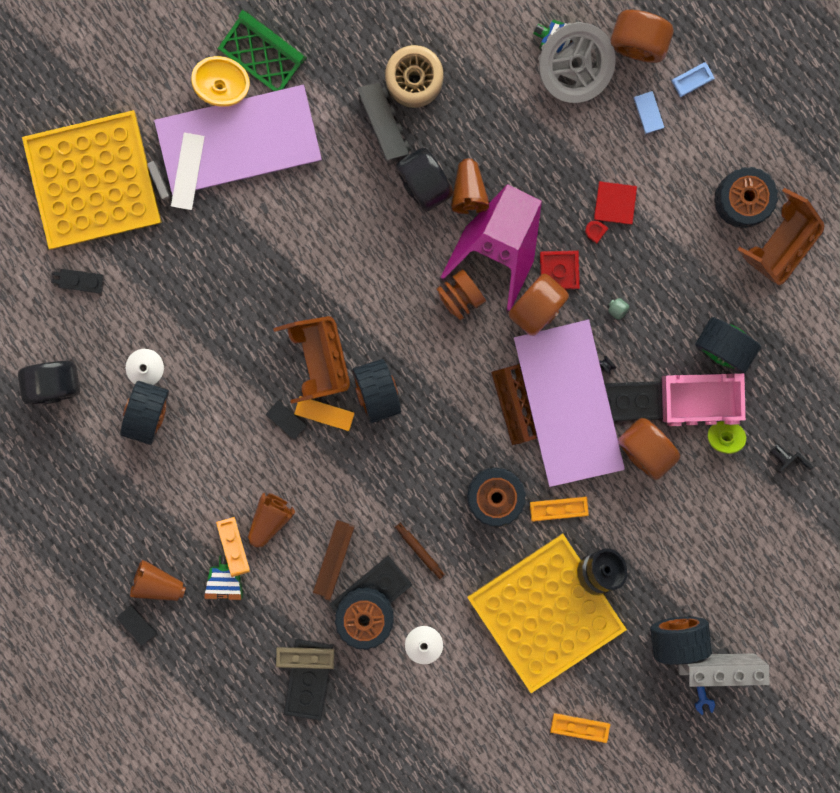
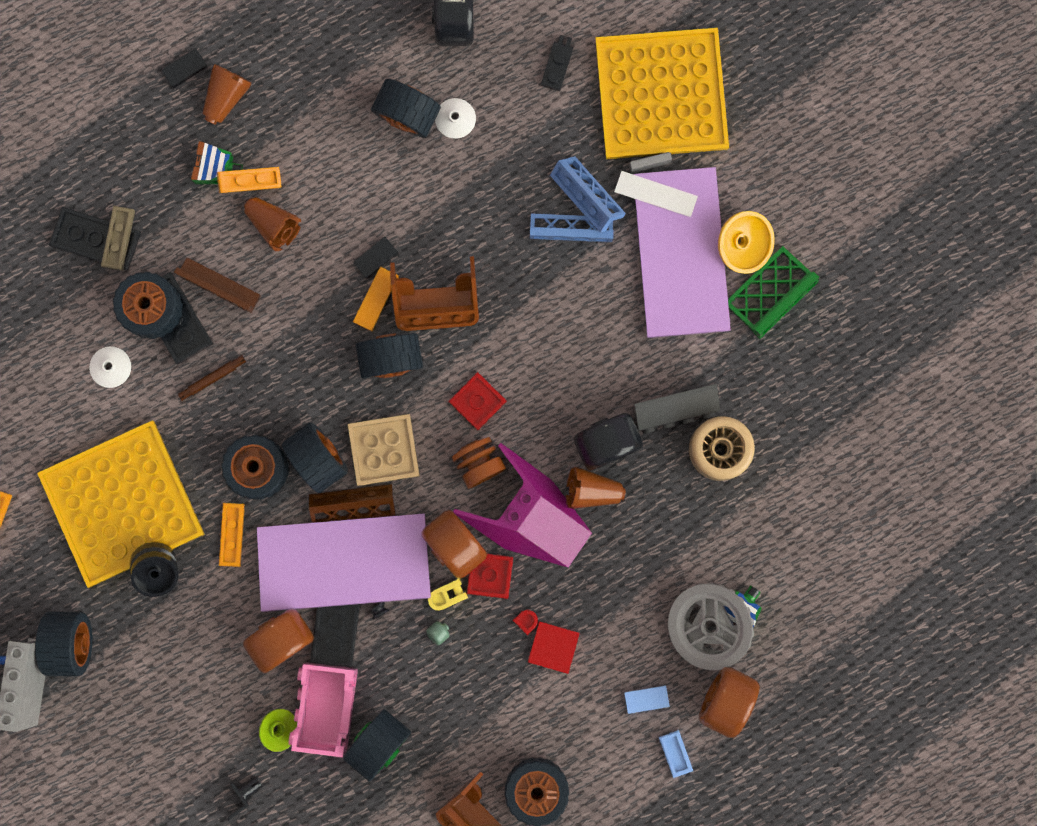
camera: 100 degrees right, 5 degrees down
(199, 236) = (583, 194): none -> medium blue fence
(237, 244) = (568, 233): none -> medium blue fence
(404, 306) = (477, 401): none -> red tile
(461, 383) = (383, 450): none -> tan plate
(479, 443) = (314, 457): none -> black wheel
(589, 310) = (440, 598): none -> light yellow plate

